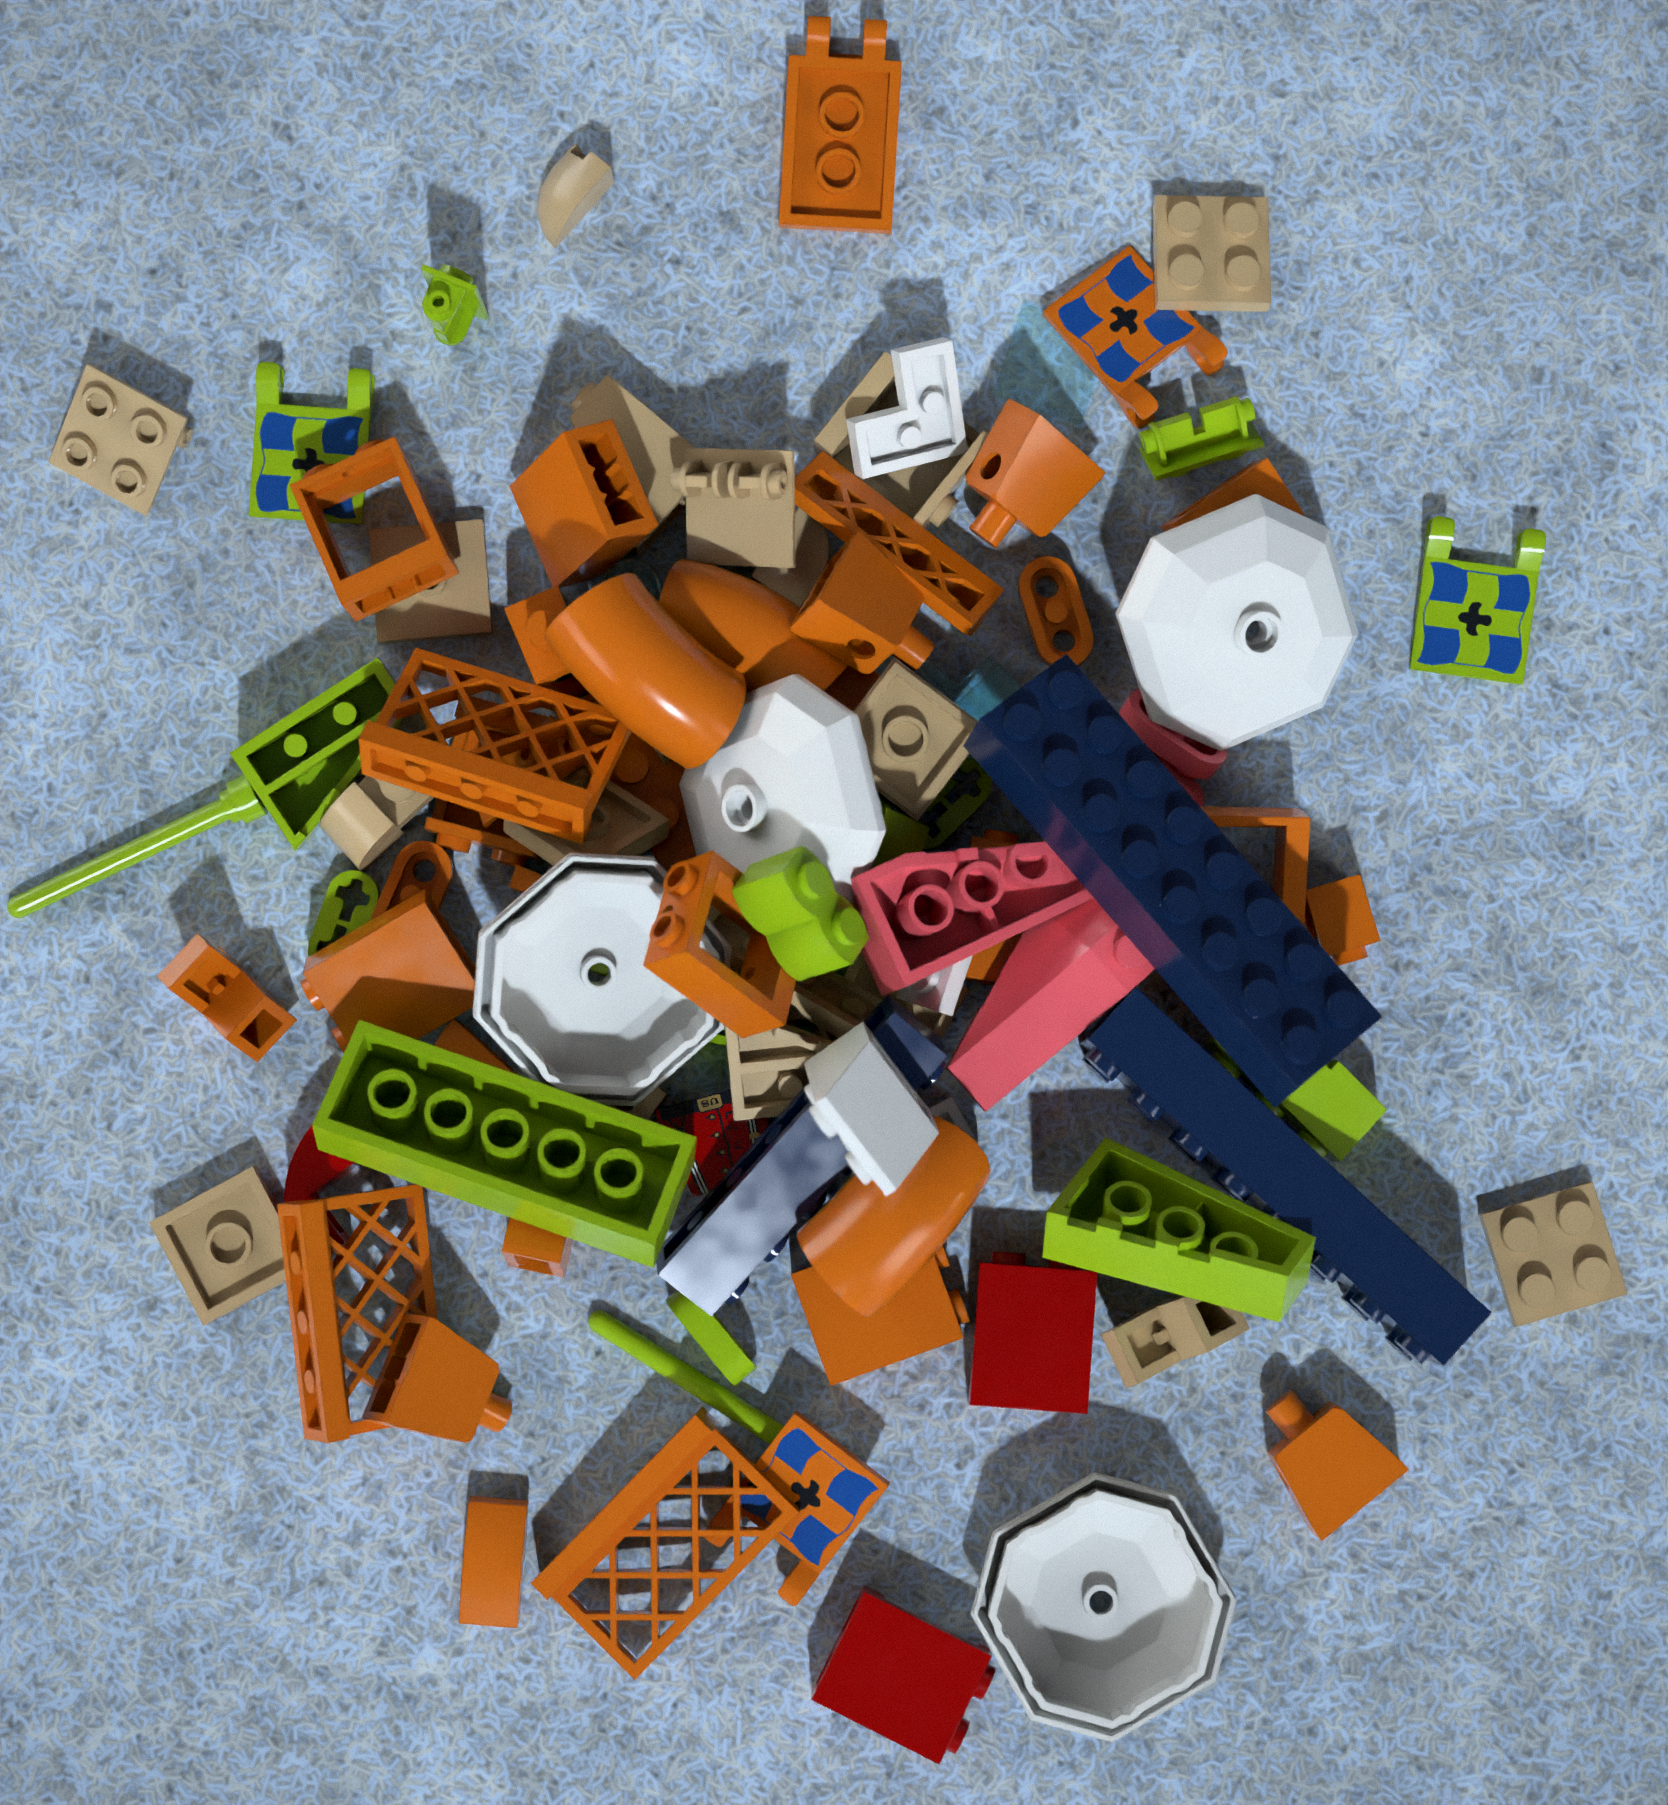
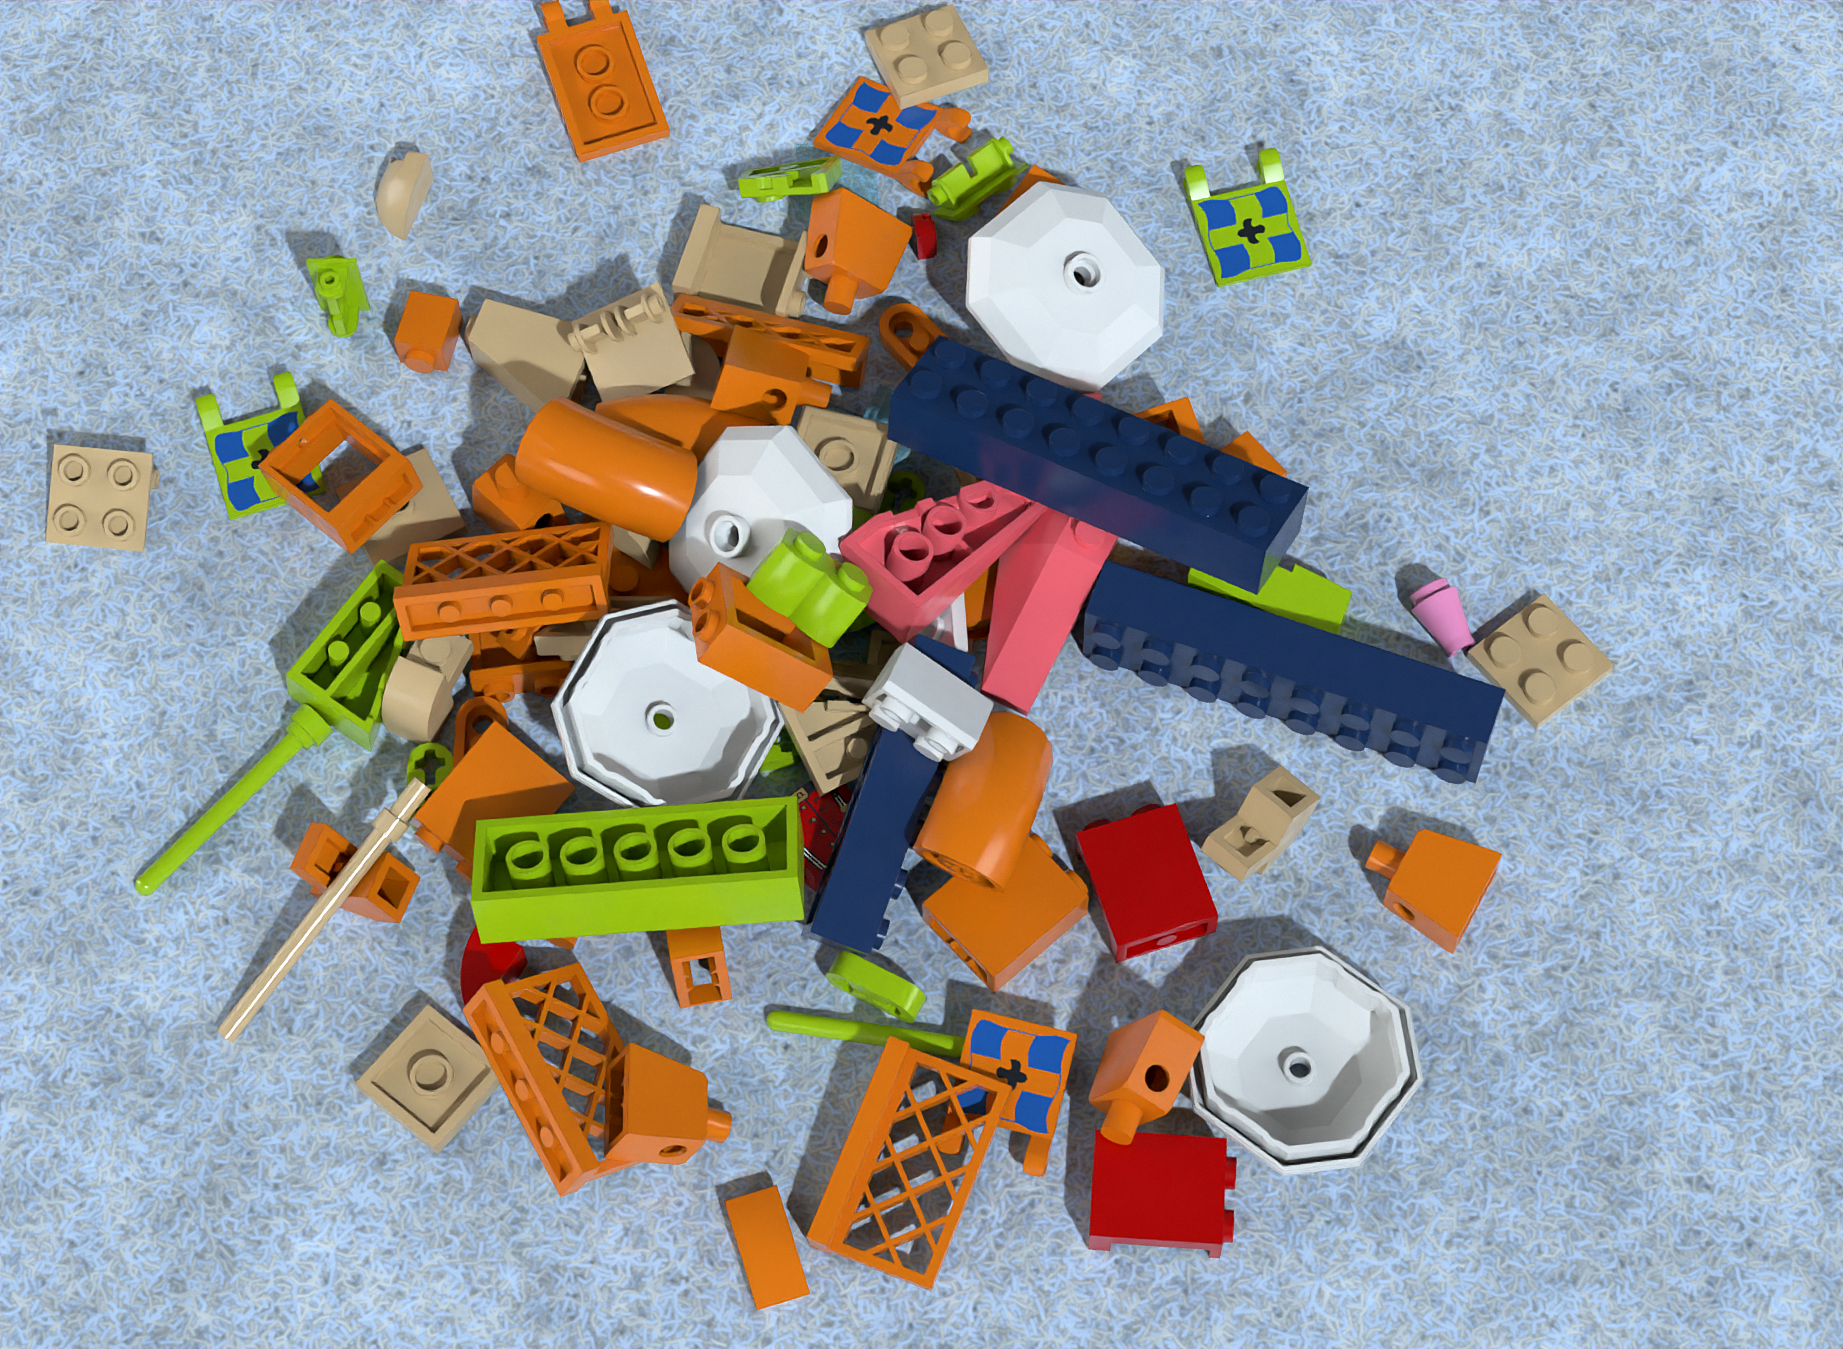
camera: 20 degrees left, 20 degrees down
(270, 975) = (389, 827): none -> tan bar
(534, 382) = (428, 332): none -> orange brick
(583, 504) = (501, 384): orange brick -> none
(925, 423) = (754, 239): white plate -> none
(933, 1558) = (1142, 1072): none -> orange torso
(1002, 359) = (793, 178): none -> lime wing
(1116, 477) = (924, 235): none -> red tile
(1175, 1235) = (1227, 739): lime wedge -> none
(1474, 1164) = (1443, 615): none -> bright pink cone

